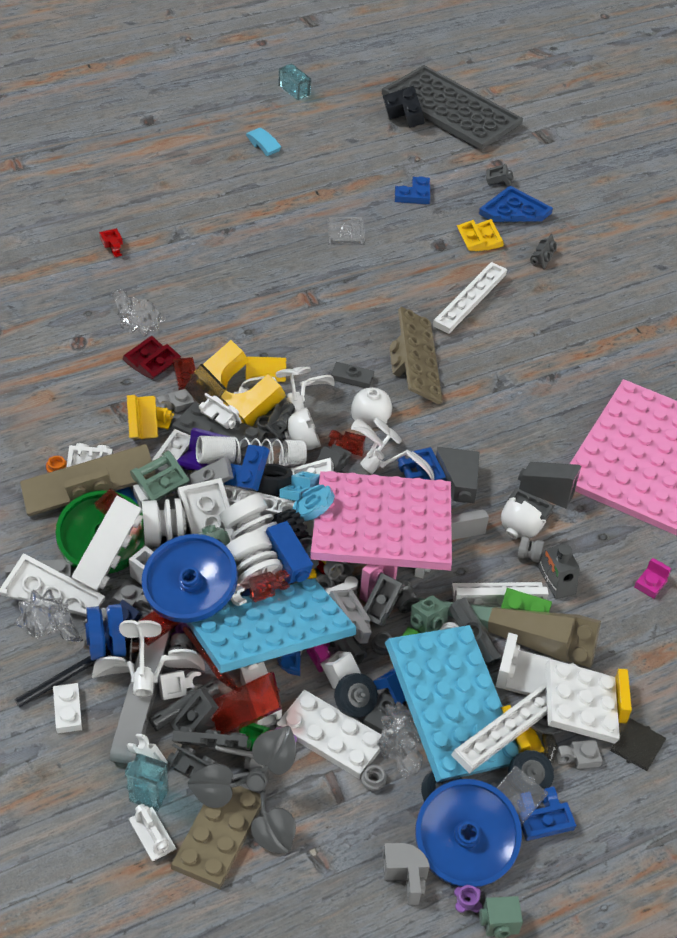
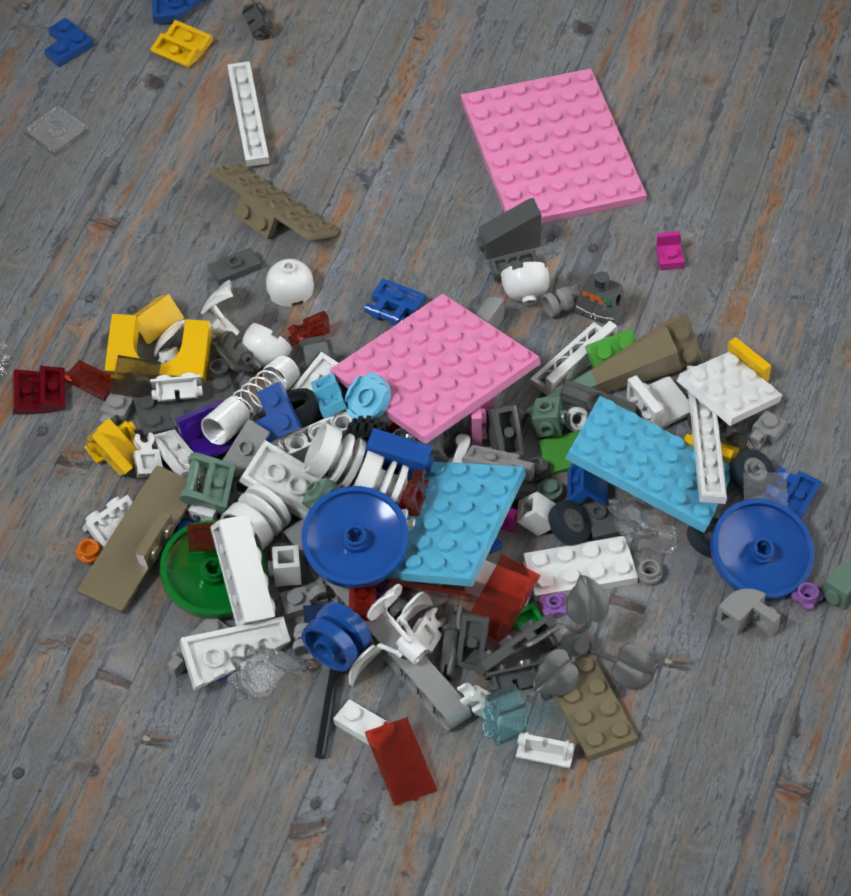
camera: 40 degrees left, 5 degrees up
(54, 752) = (400, 761): none -> clear red piece
(155, 439) = (145, 457): none -> white plate
(374, 664) = (550, 489): none -> sand green plate
(375, 457) = (351, 323): white plant -> none
(462, 470) = (431, 277): dark grey slope -> none
(638, 744) = (796, 389): clear smoke piece -> none

